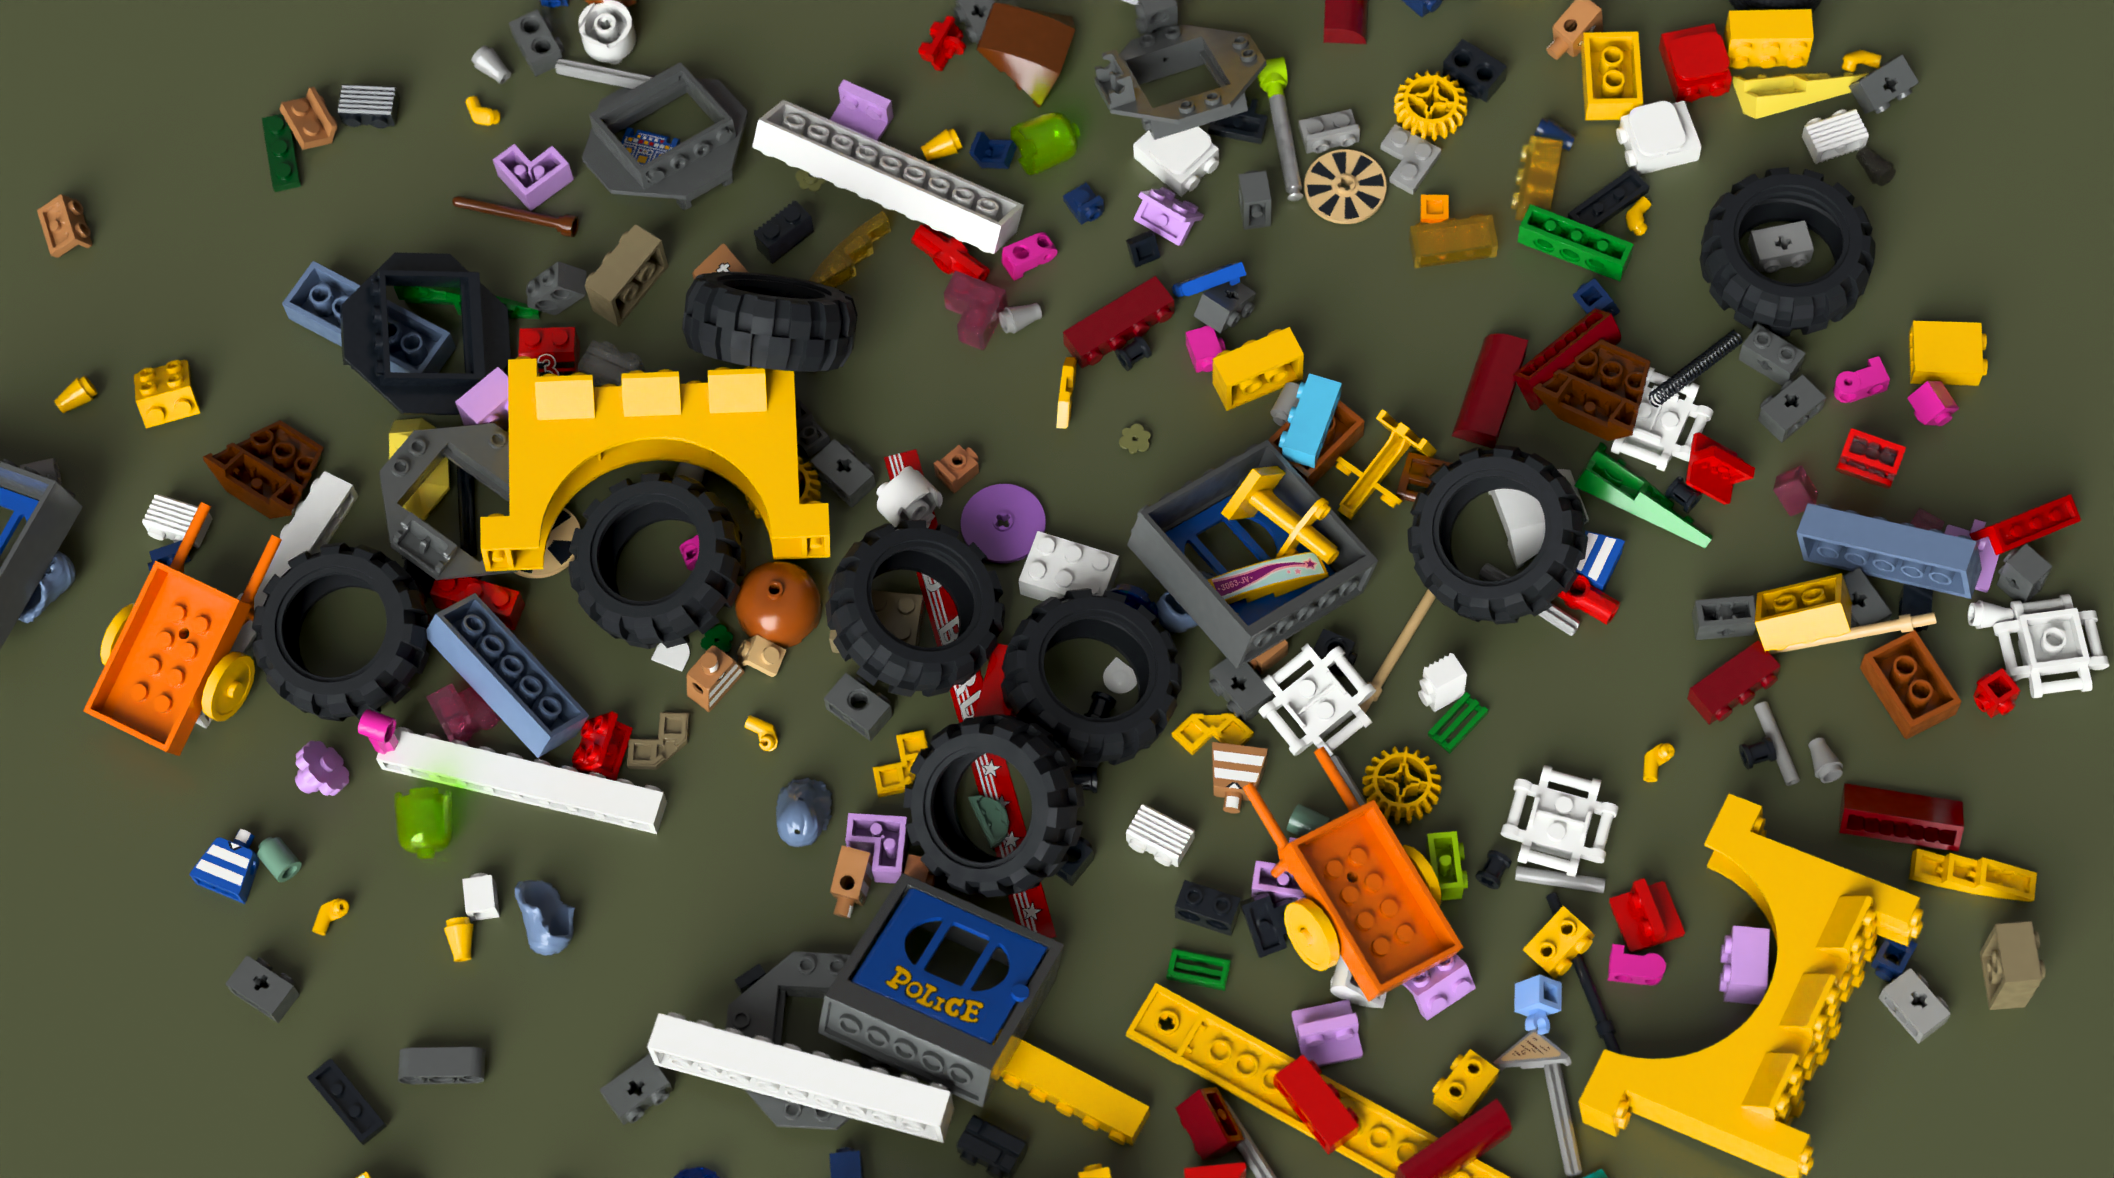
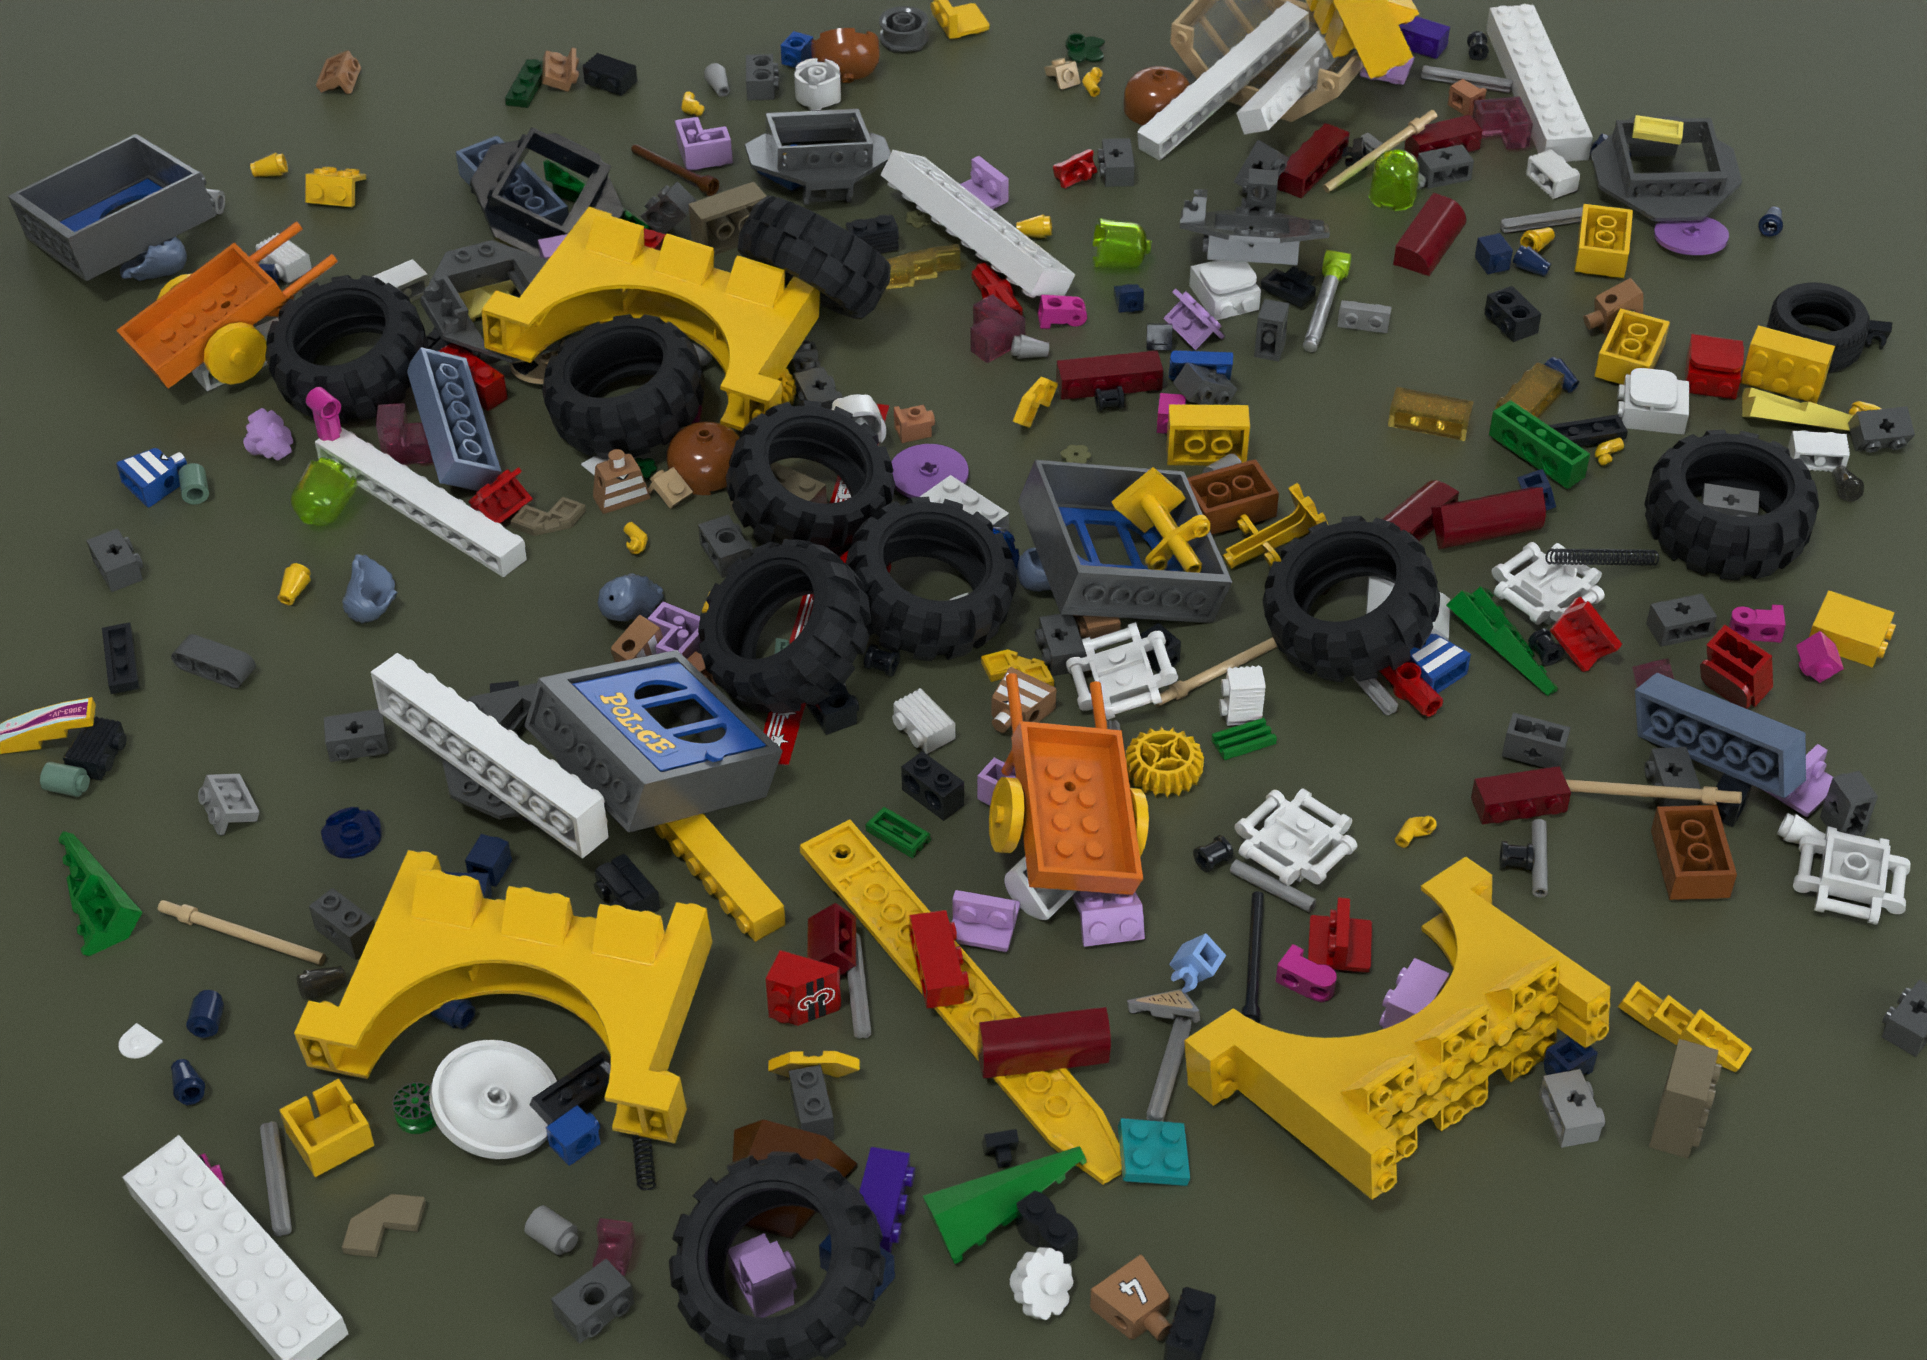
camera: 20 degrees right, 20 degrees down
(267, 468) = (372, 249): reddish brown wedge -> none
(329, 912) = (205, 532): yellow arm -> none
(480, 897) = (329, 562): white brick -> none
(600, 74) = (785, 103): light grey axle -> none
(992, 153) = (1071, 244): dark blue bracket -> none
(1027, 46) = (1140, 184): reddish brown wedge -> none
(1266, 923) = (974, 813): black hinge -> none
(1270, 576) = (1123, 558): slope -> none
(1310, 420) = (1230, 471): medium azure brick -> none
(1335, 203) = (1357, 354): tan piece -> none
(1416, 158) = (1427, 354): light grey plate -> none
(1417, 96) = (1461, 324): yellow gear -> none
(1434, 208) = (1428, 385): light orange plate -> none
(1445, 857) = (1167, 830): lime brick -> none
(1465, 1086) = (1094, 993): yellow brick -> none
(1559, 943) = (1243, 927): yellow brick -> none
(1598, 391) = (1501, 539): reddish brown wedge -> none
(1771, 355) = (1679, 573): dark grey brick -> none
(1803, 612) = (1612, 755): yellow brick -> none
(1825, 762) = (1579, 888): light grey cone -> none
(1901, 817) = (1633, 953): dark red brick -> none
(1996, 693) = (1777, 888): red brick -> none
(2030, 524) = (1871, 762): red fence -> none

